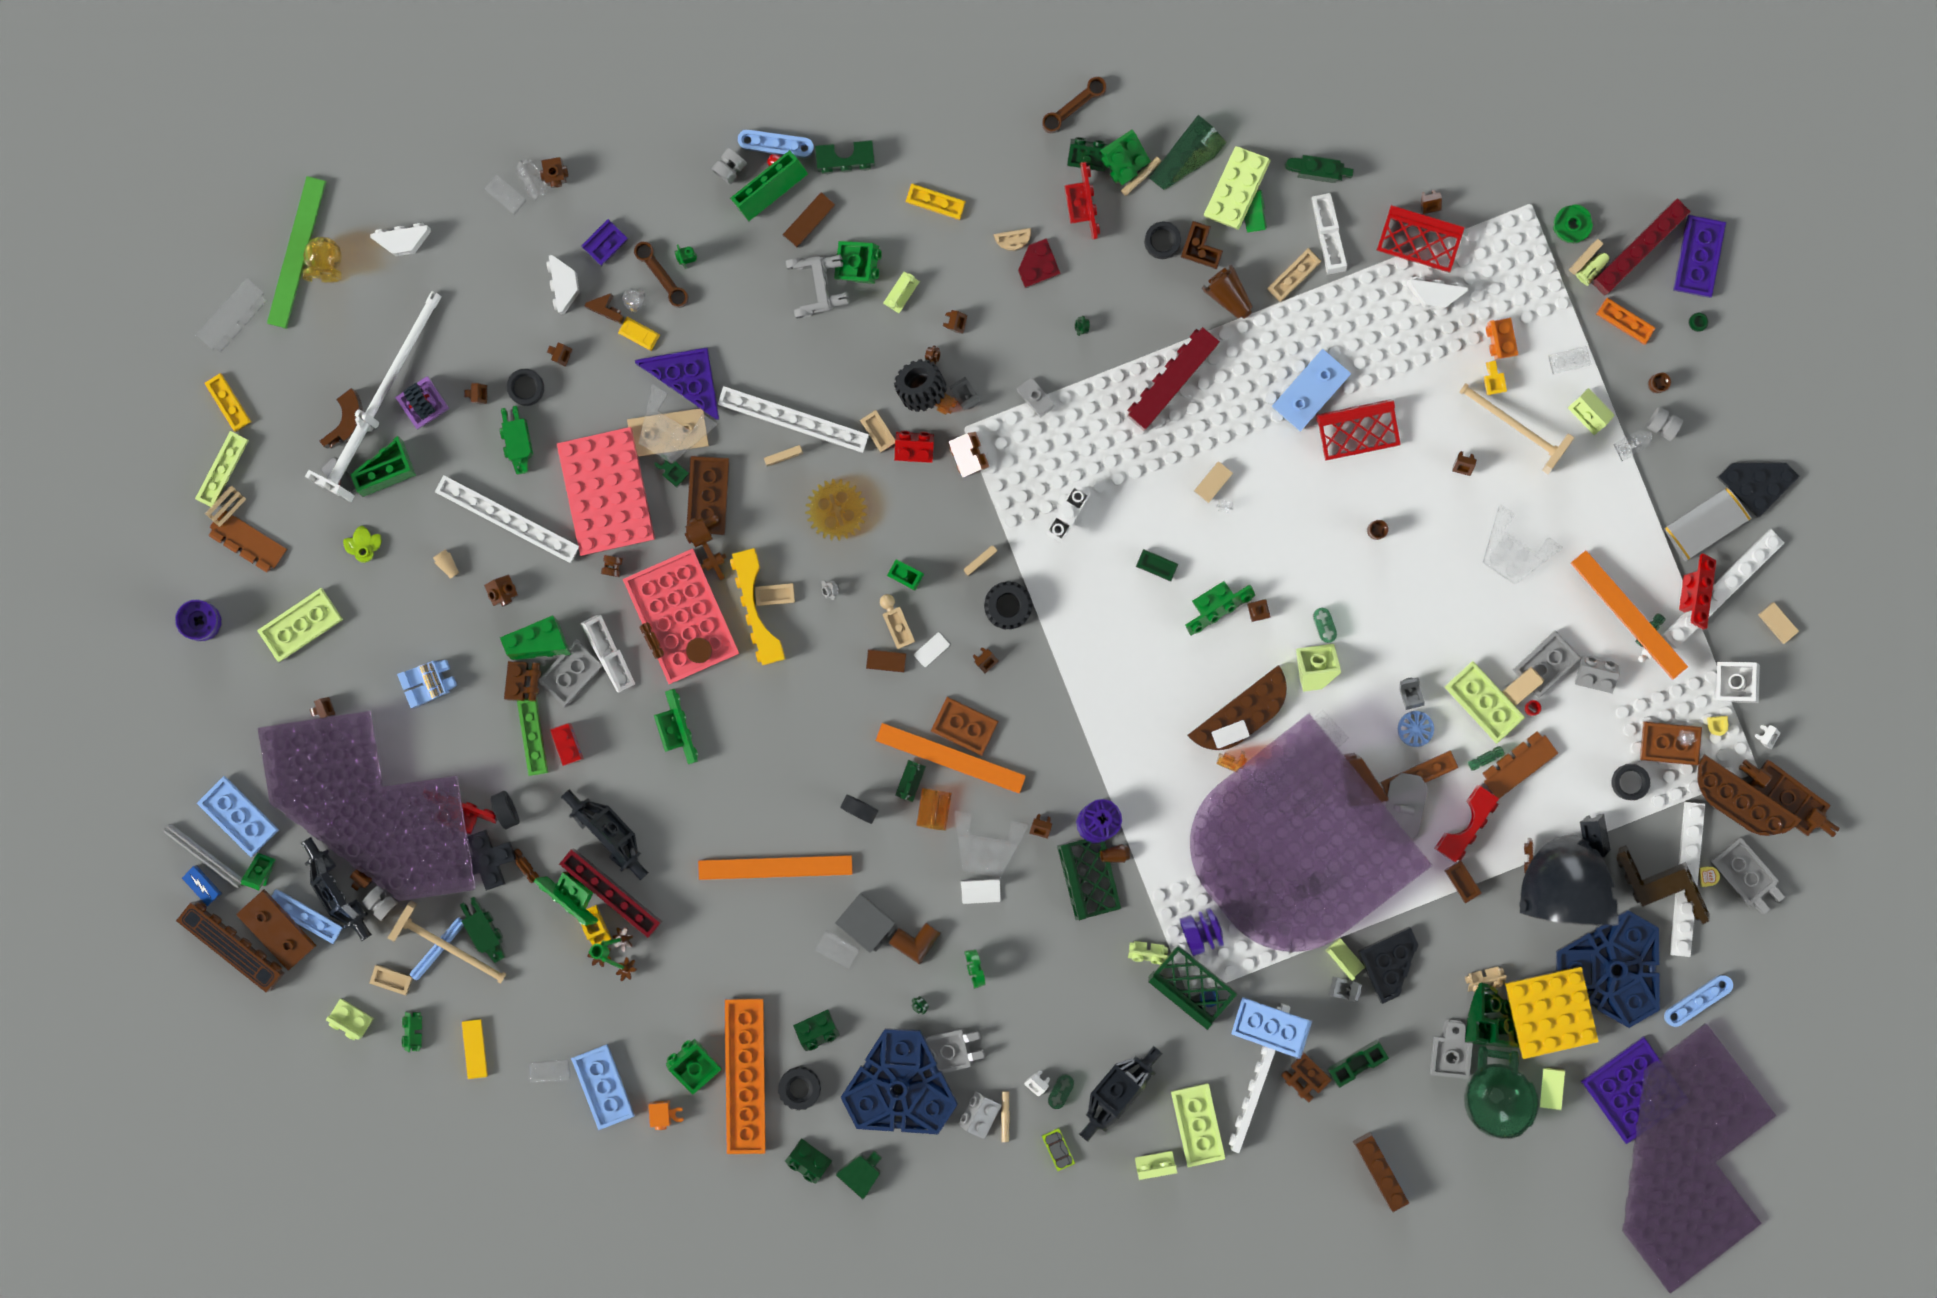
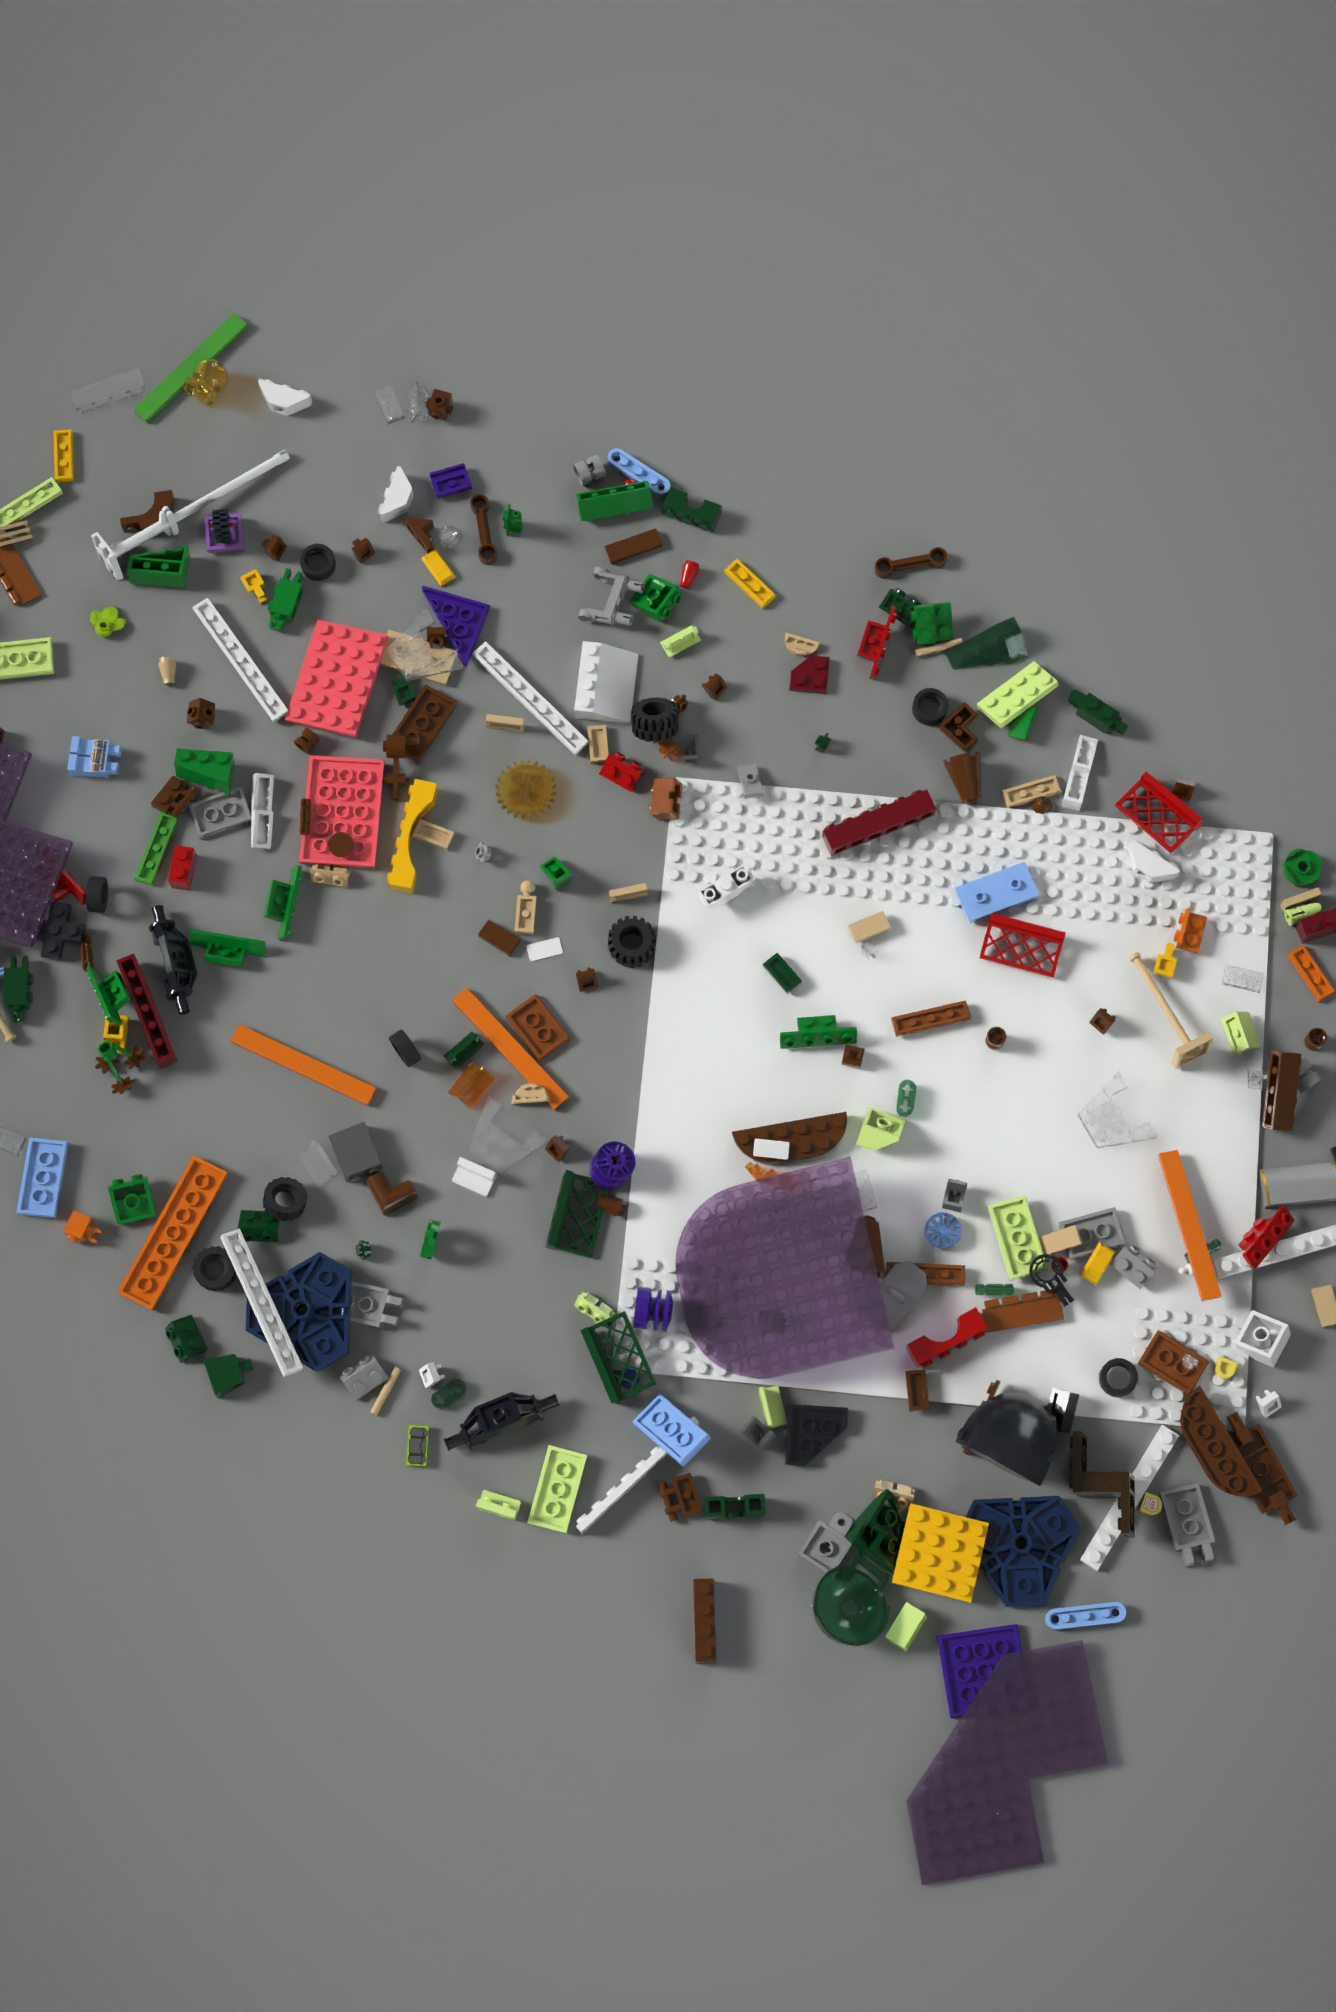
camera: 25 degrees right, 15 degrees down
(478, 438) = (253, 583): none -> yellow plate
(648, 799) = (226, 948): none -> green bracket
(675, 403) = (436, 635): none -> reddish brown tile
(711, 680) = (322, 874): none -> tan hinge
(821, 984) = (284, 1185): none -> black tyre
(855, 369) = (605, 683): none -> white slope
(858, 1100) = (261, 1302): none -> white plate
(875, 222) = (689, 573): none -> red cone
(991, 790) = (530, 1094): none -> tan tile
(1310, 284) = (1042, 805): none -> reddish brown piece
(1310, 539) = (930, 1018): none -> dark orange tile
(1532, 732) = (1059, 1289): none -> black pin
(1564, 689) = (1097, 1264): none -> yellow tile
(1653, 450) = (1281, 1090): none -> reddish brown brick

